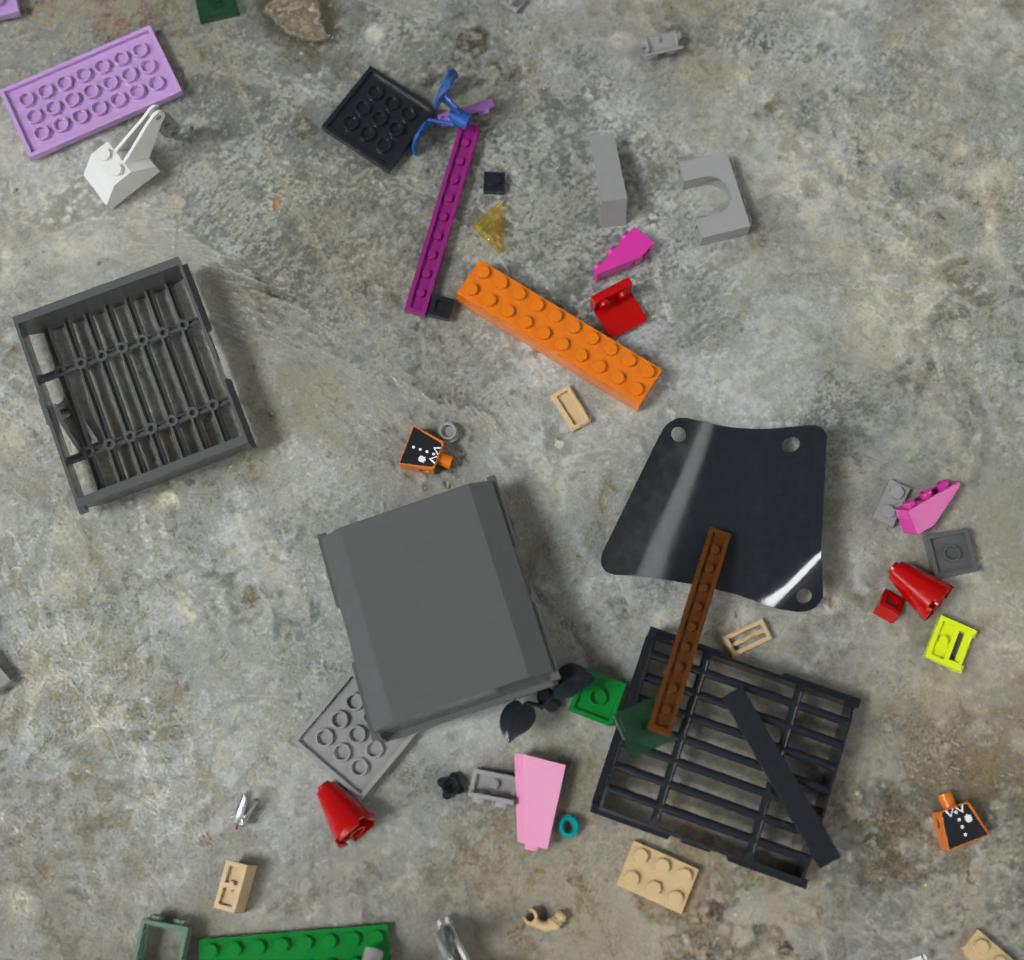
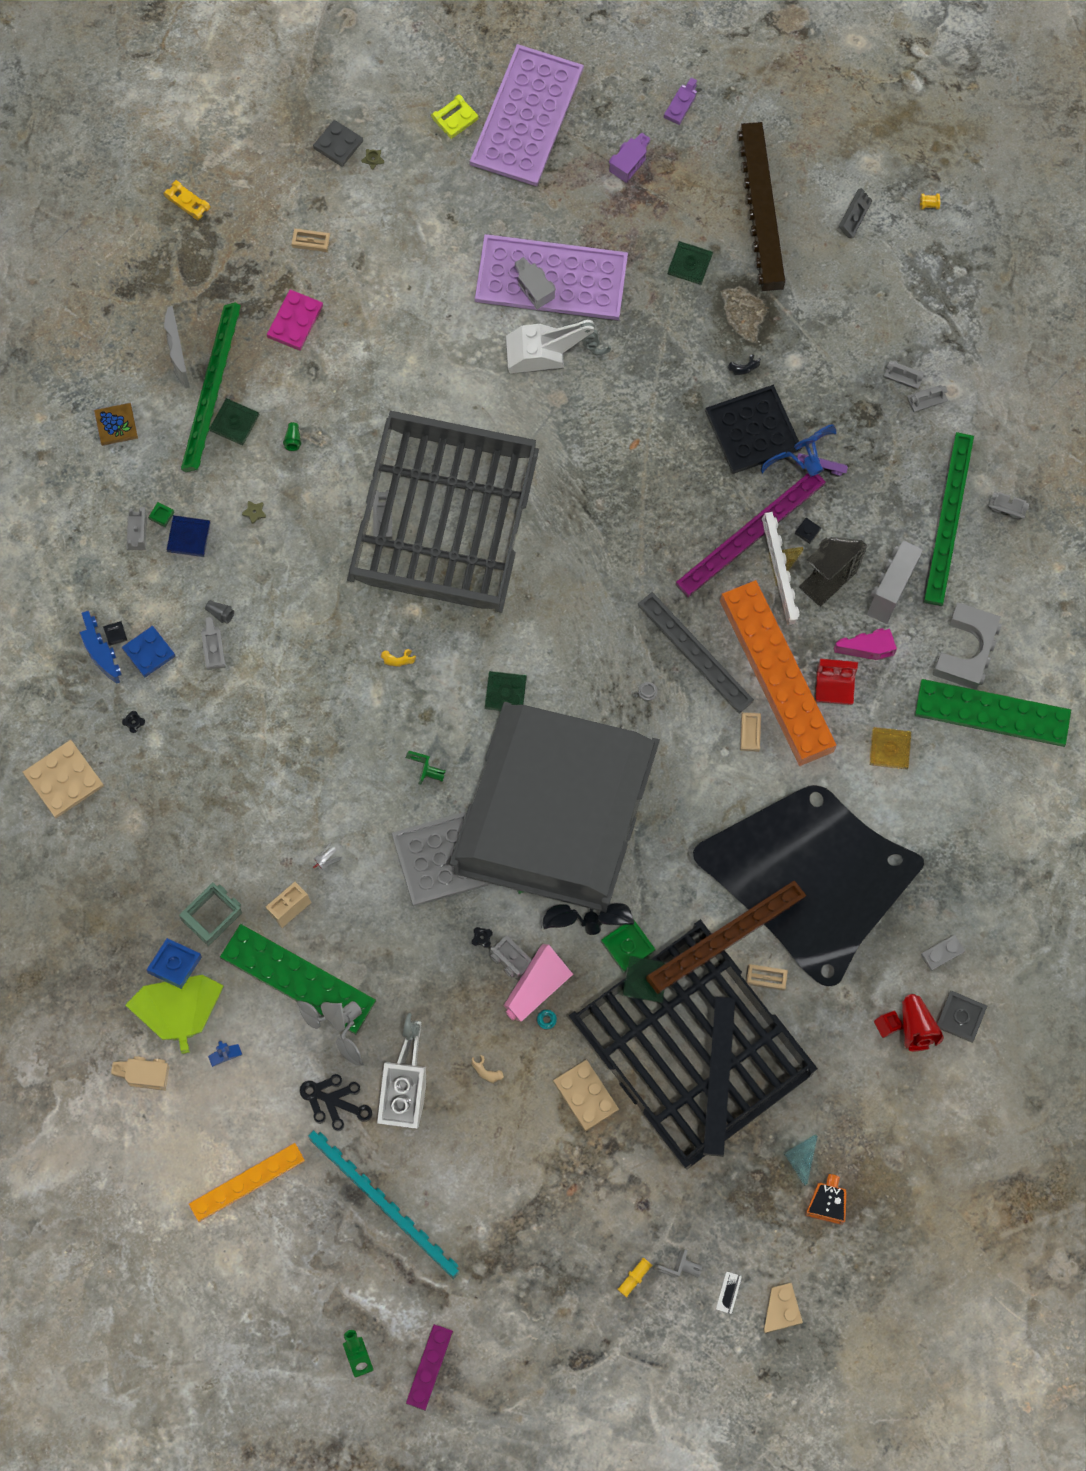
camera: 30 degrees right, 5 degrees down
(78, 107) = (534, 283): none -> light grey hinge
(177, 565) = (391, 660): none -> yellow piece
(285, 653) = (427, 771): none -> green bracket
(310, 520) = (504, 688): none -> clear green plate
(330, 70) = (744, 369): none -> black piece
(344, 813) = (395, 906): red cone -> none
(424, 453) = (620, 694): torso -> none
(441, 308) = (704, 598): black plate -> none
(468, 365) = (695, 652): none -> dark grey plate
(488, 228) = (779, 560): none -> white plate
(544, 201) = (833, 566): none -> clear smoke windscreen
(616, 92) = (949, 519): none -> green plate
(709, 339) = (890, 748): none -> clear yellow plate
(777, 246) = (993, 712): none -> green plate
(901, 795) = (802, 1157): none -> clear light blue tile
(924, 510) = (963, 972): dark pink slope -> none
(943, 641) = (910, 1073): neon yellow plate -> none

